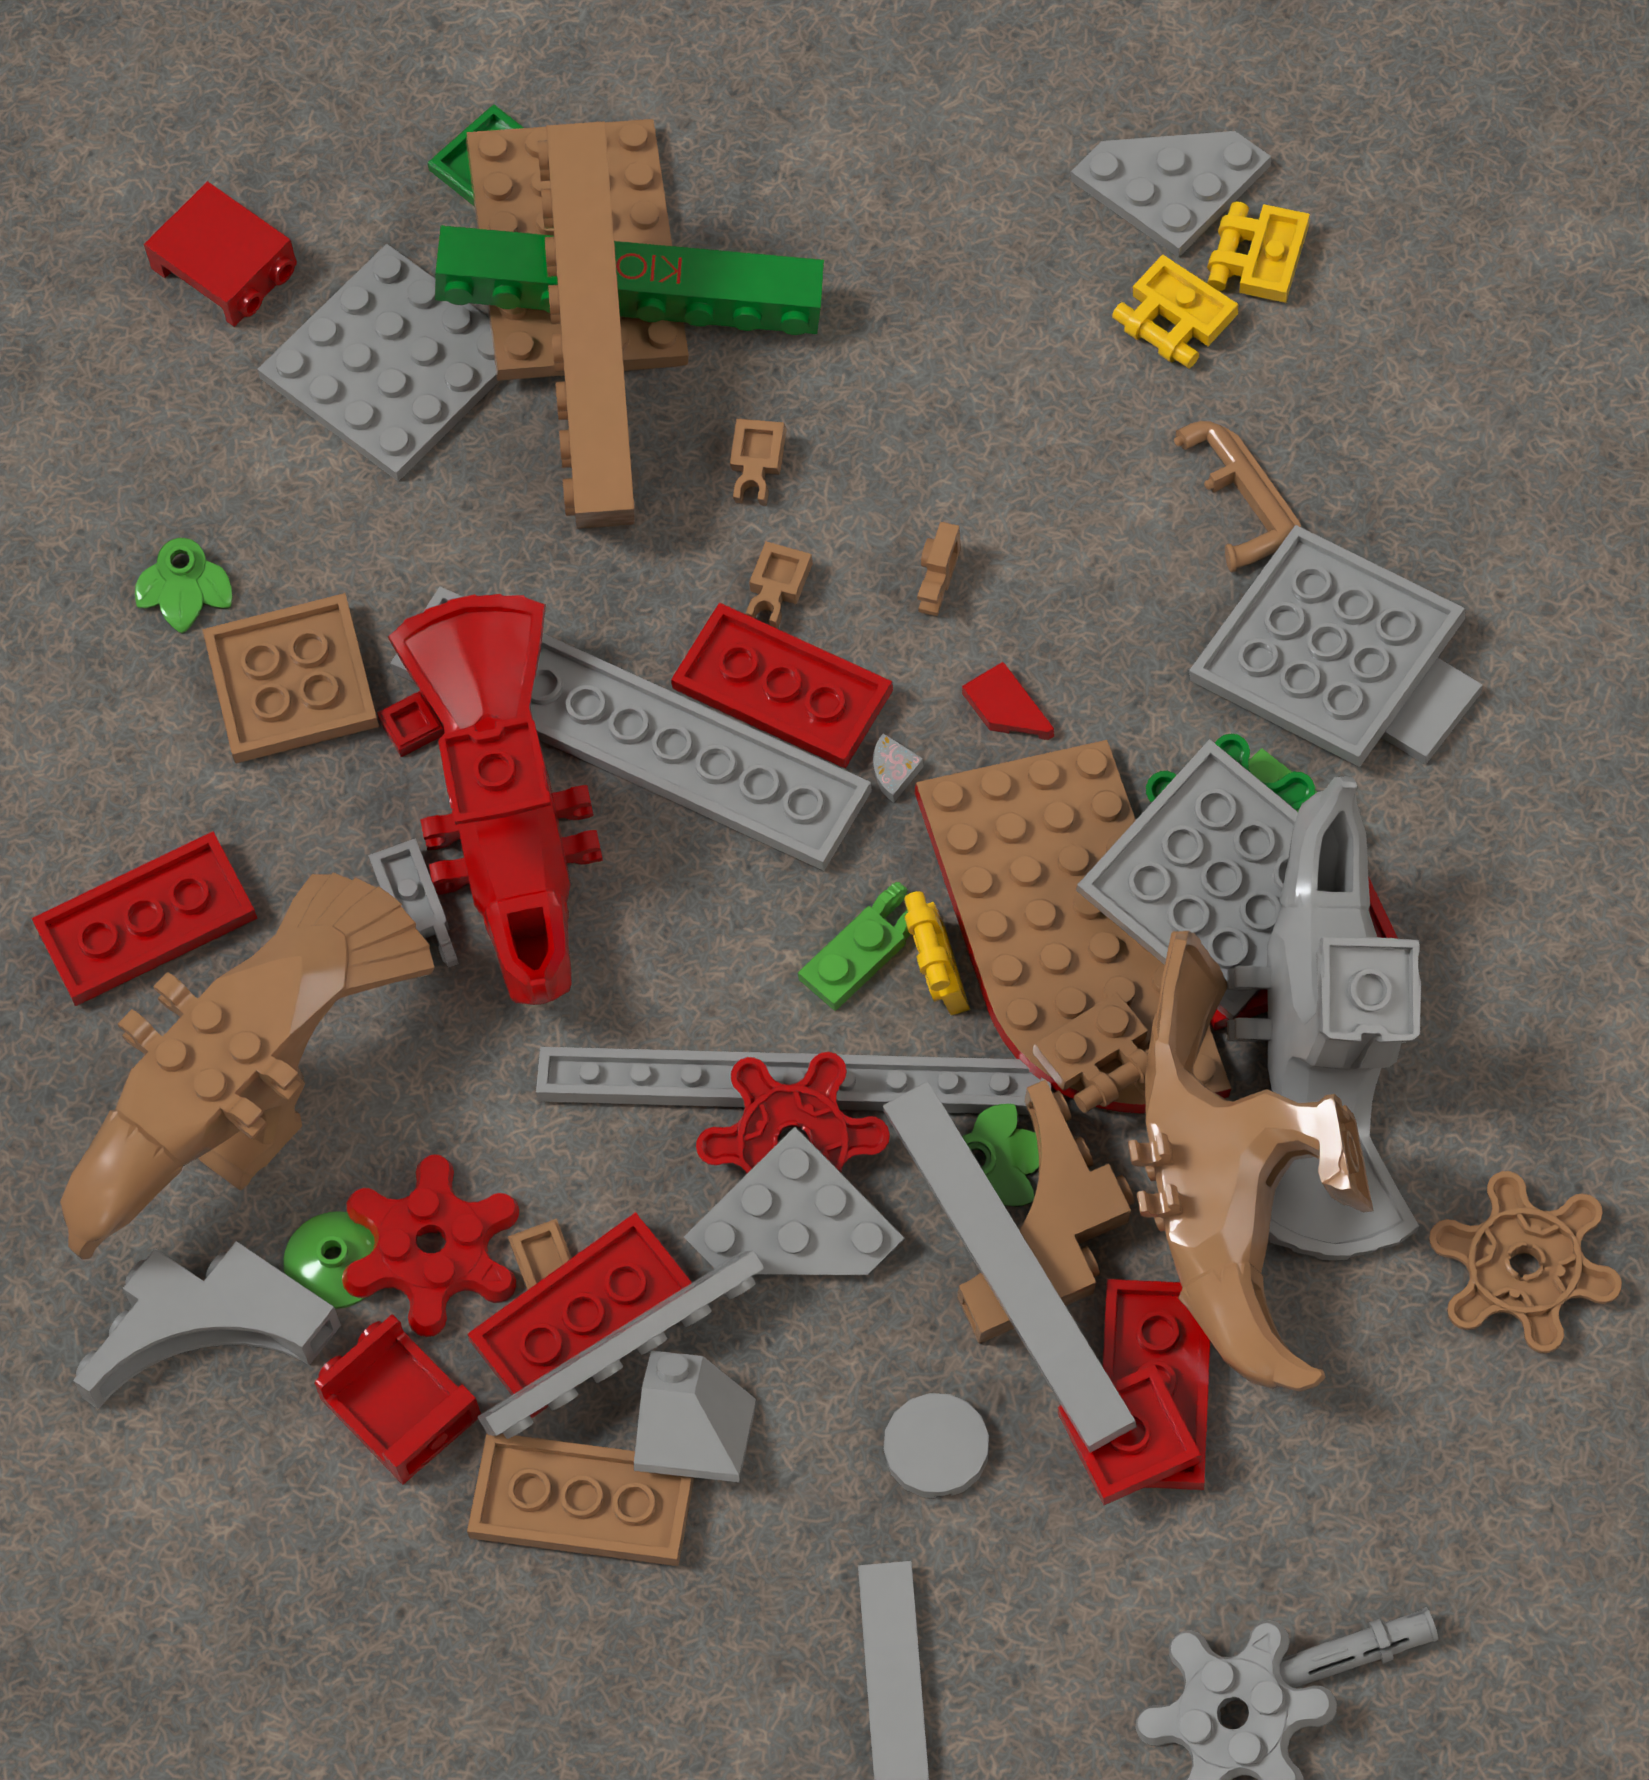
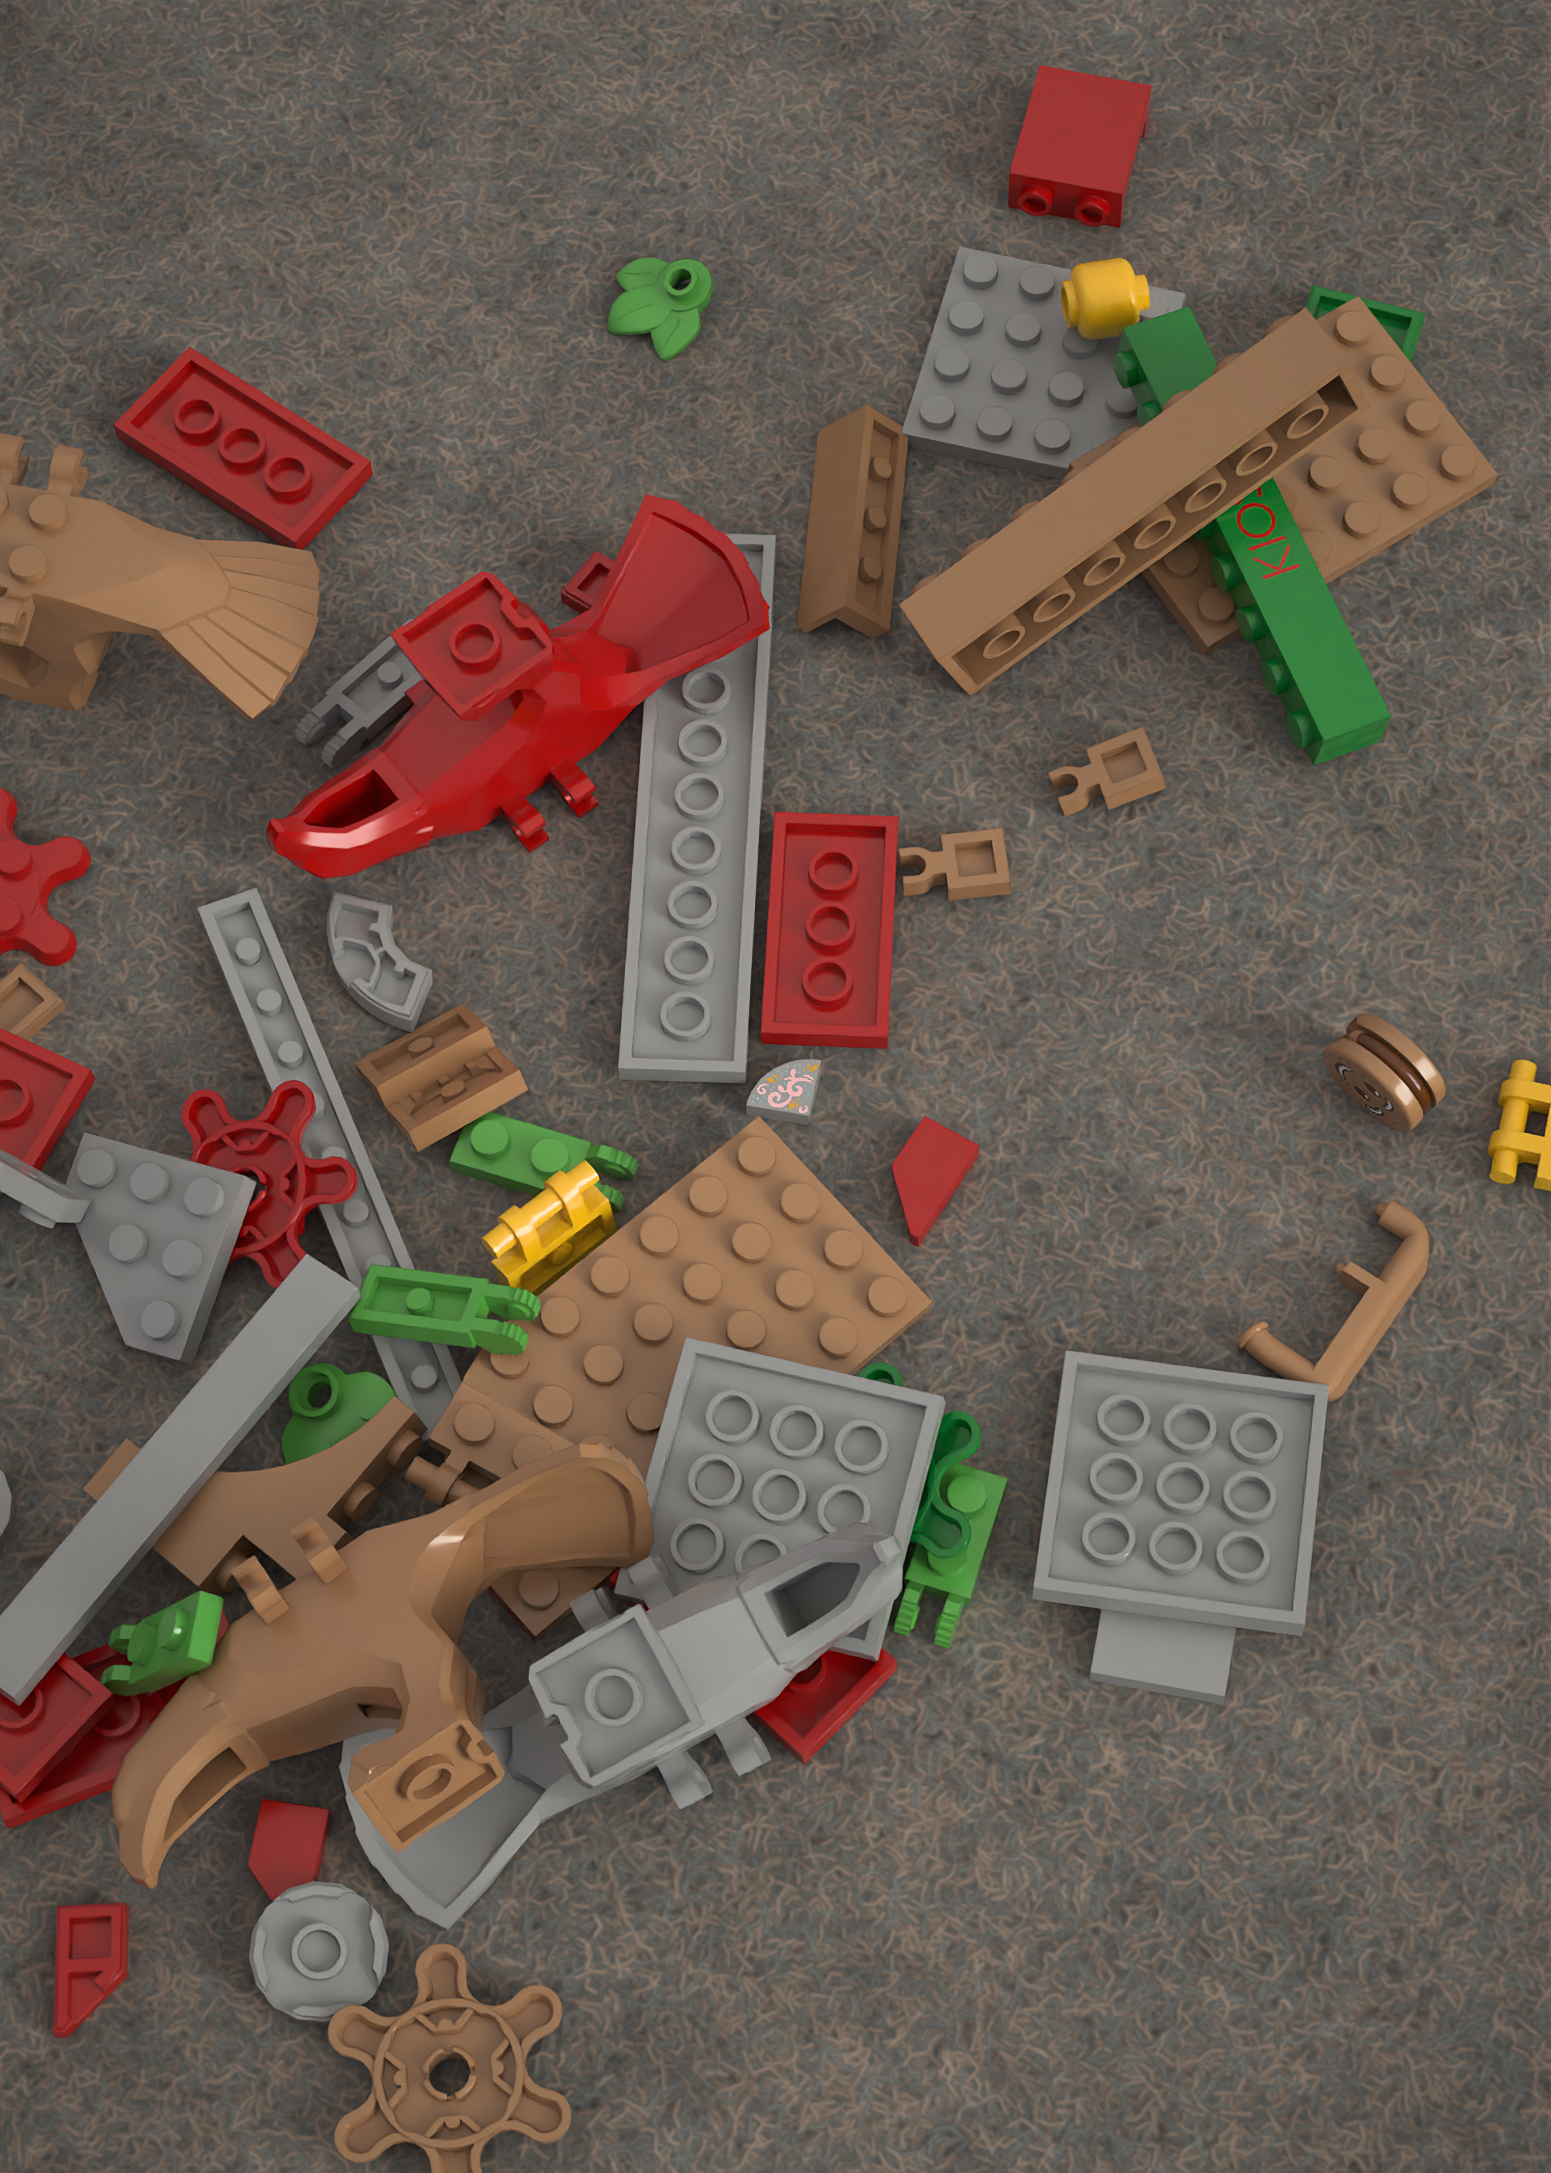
camera: 60 degrees right, 0 degrees up
(290, 678) = (594, 448): medium nougat plate -> none
(378, 286) = (1103, 298): none -> yellow head
(451, 536) = (854, 523): none -> medium nougat panel
(641, 996) = (372, 964): none -> light grey tile
(762, 984) = (441, 1077): none -> medium nougat slope
(940, 560) = (1071, 1022): medium nougat plate -> none
(967, 1037) = (442, 1309): none -> bright green hinge
(1088, 387) = (1385, 1072): none -> medium nougat head
(1148, 1300) = (165, 1645): none -> bright green hinge
(1316, 1312) = (288, 1845): none -> red tile
(1328, 1471) = (88, 1960): none -> red tile
(1396, 1315) = (318, 1951): none -> light grey tile

